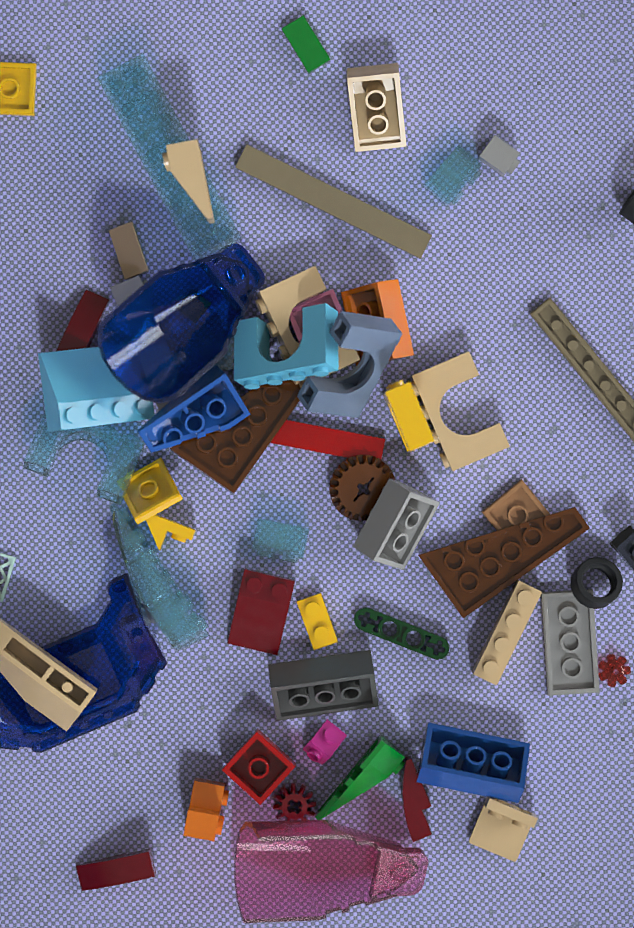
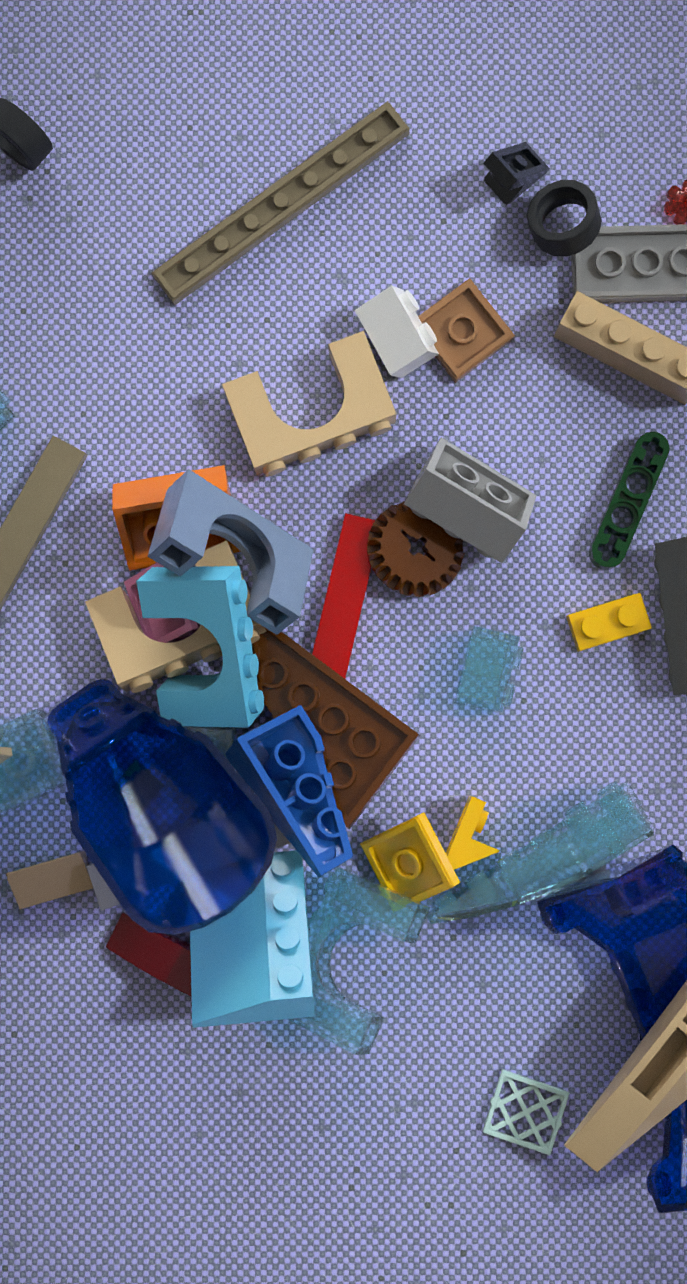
camera: 85 degrees left, 5 degrees down
(261, 611) = (592, 702): dark red slope -> none
(407, 415) = (313, 466): yellow arch -> none
(489, 563) = (531, 371): reddish brown wing -> none
(512, 470) = (397, 331): none -> white brick

